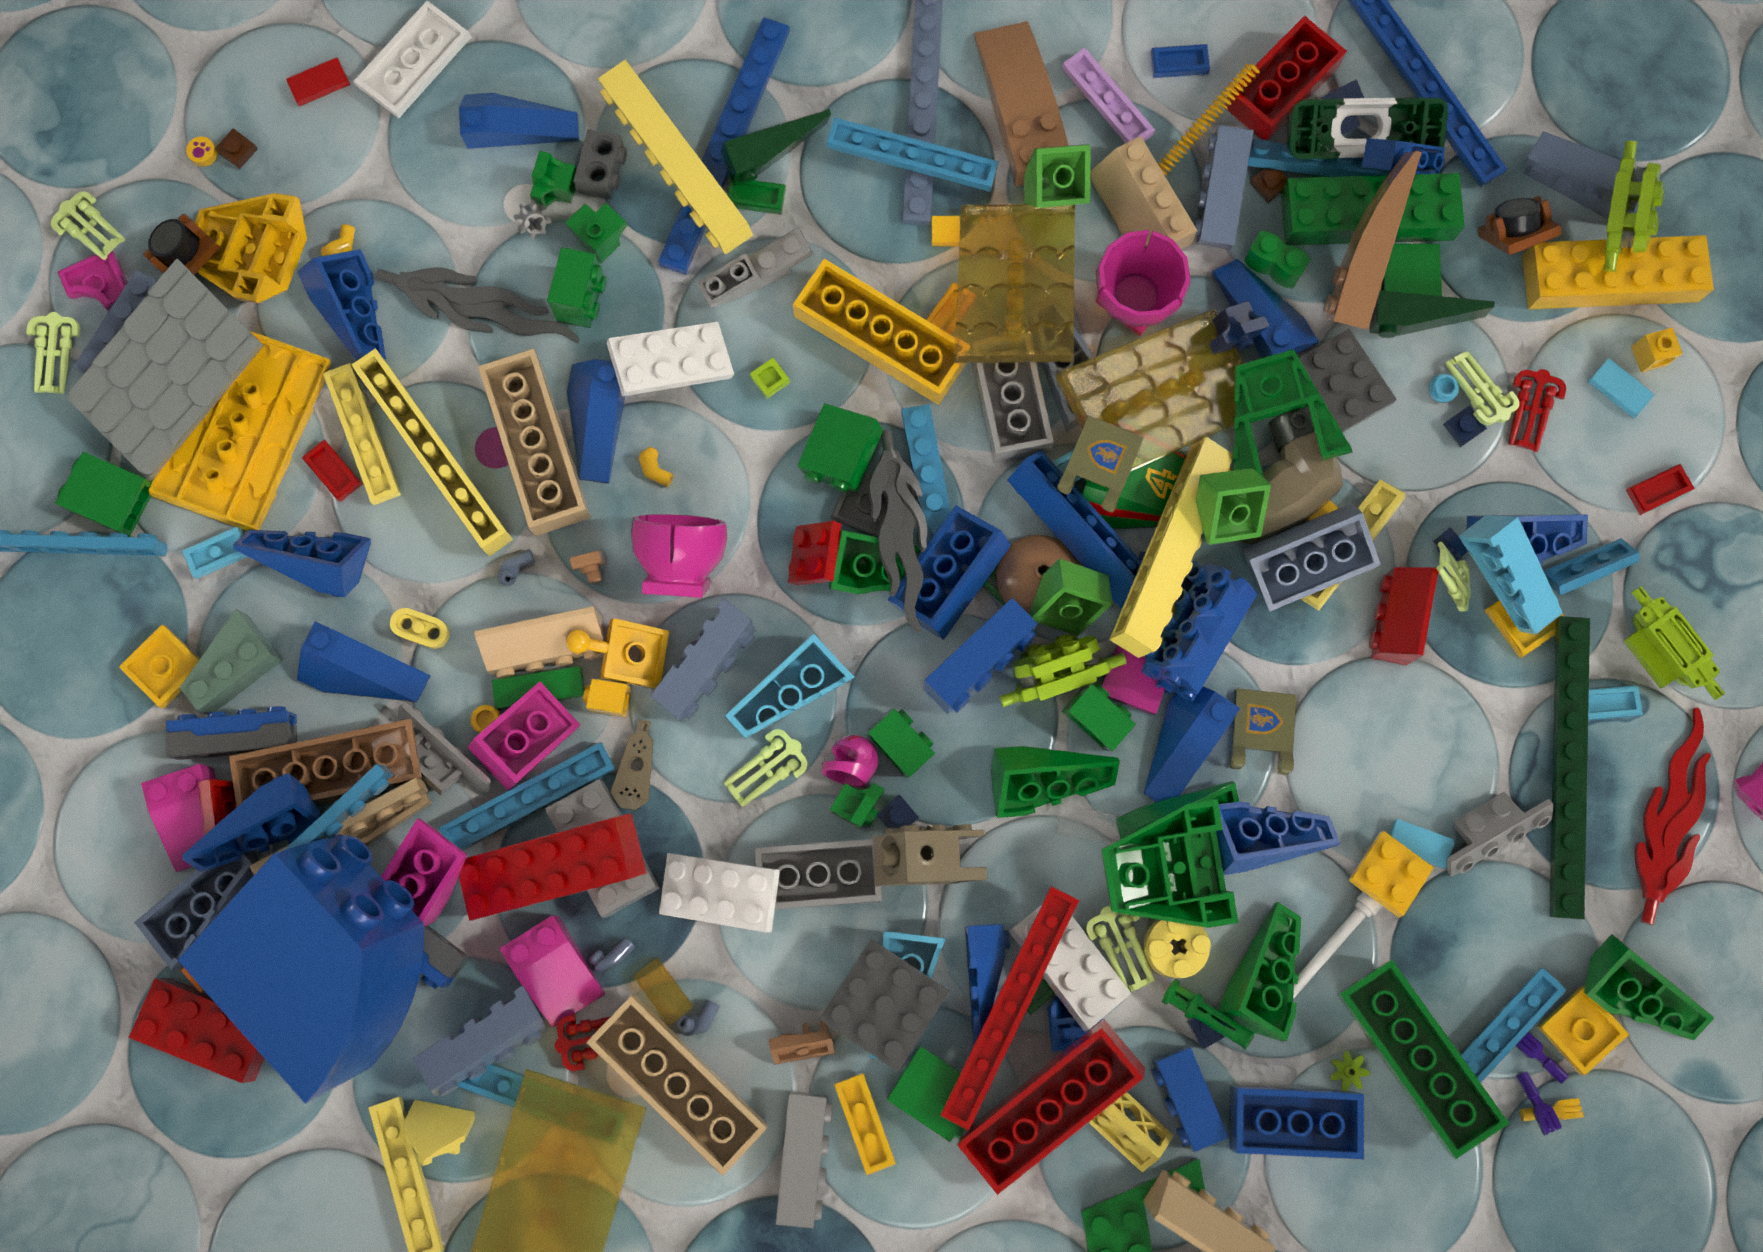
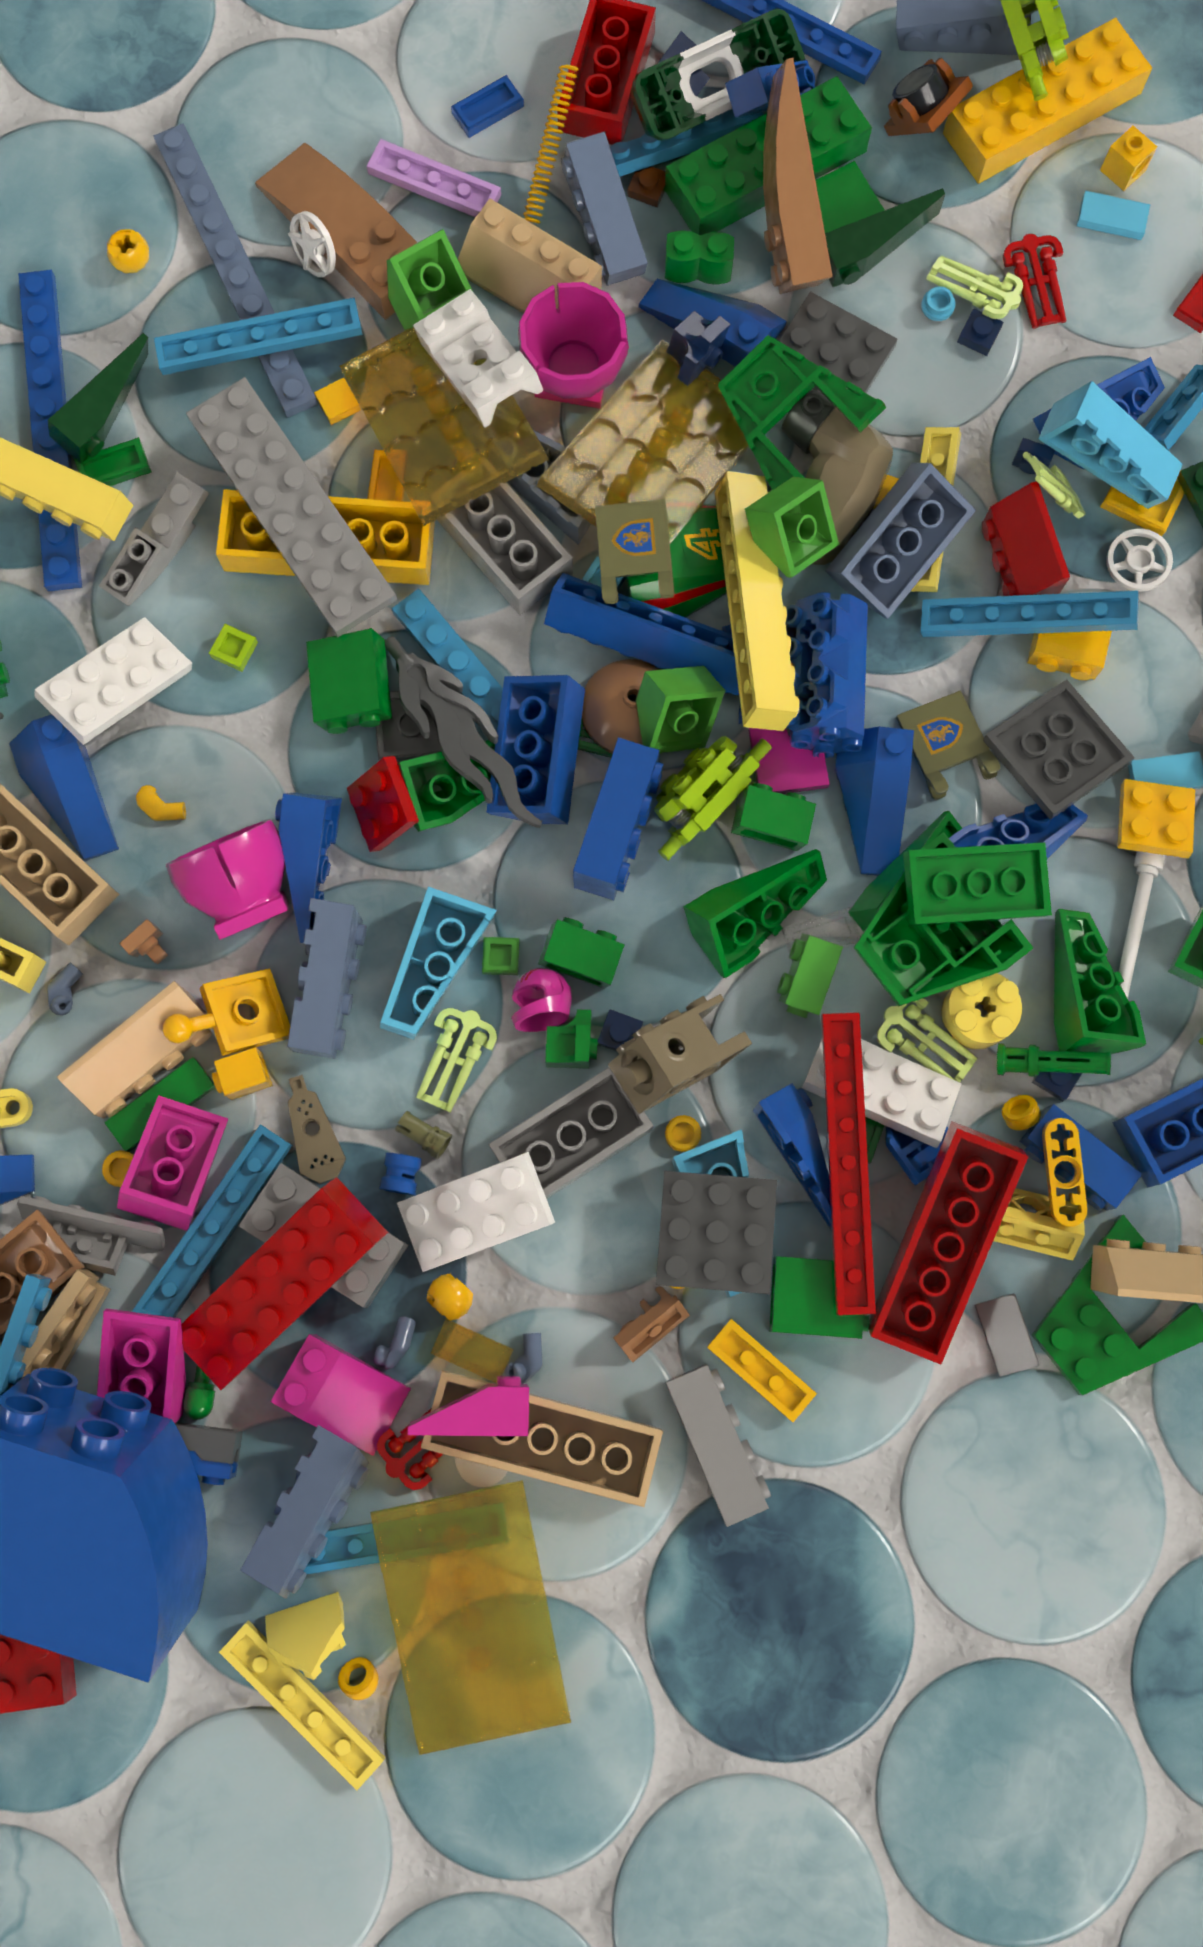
camera: 30 degrees left, 0 degrees up
(452, 916) = (199, 1396): none -> green cylinder
(459, 1191) = (366, 1687): none -> yellow piece
(643, 1043) = (488, 1411): none -> dark pink slope
(668, 943) = (449, 1297): none -> yellow piece
(681, 833) = (400, 1173): none -> blue wheel
(717, 819) = (431, 1139): none -> olive pin
(746, 546) = (306, 831): none -> blue wedge
(841, 711) = (500, 956): none -> bright green tile
(850, 31) = (127, 251): none -> yellow piece
(866, 298) = (291, 507): none -> light grey plate
(903, 916) = (683, 1133): none -> yellow tile
(989, 104) = (311, 244): none -> white wheel
(1059, 232) = (462, 335): none -> white piece
(1060, 850) = (809, 975): none -> bright green brick
(1061, 1199) = (1007, 1335): none -> slope
(1152, 1122) = (1050, 1163): none -> yellow beam
(1164, 1040) = (1021, 1112): none -> yellow tile
(1220, 852) = (977, 883): none -> green plate
(1345, 780) = (1058, 749): none -> dark grey plate
(1379, 667) = (1030, 614): none -> dark azure plate
(1397, 706) = (1070, 652): none -> yellow brick
(1491, 667) = (1139, 560): none -> white wheel

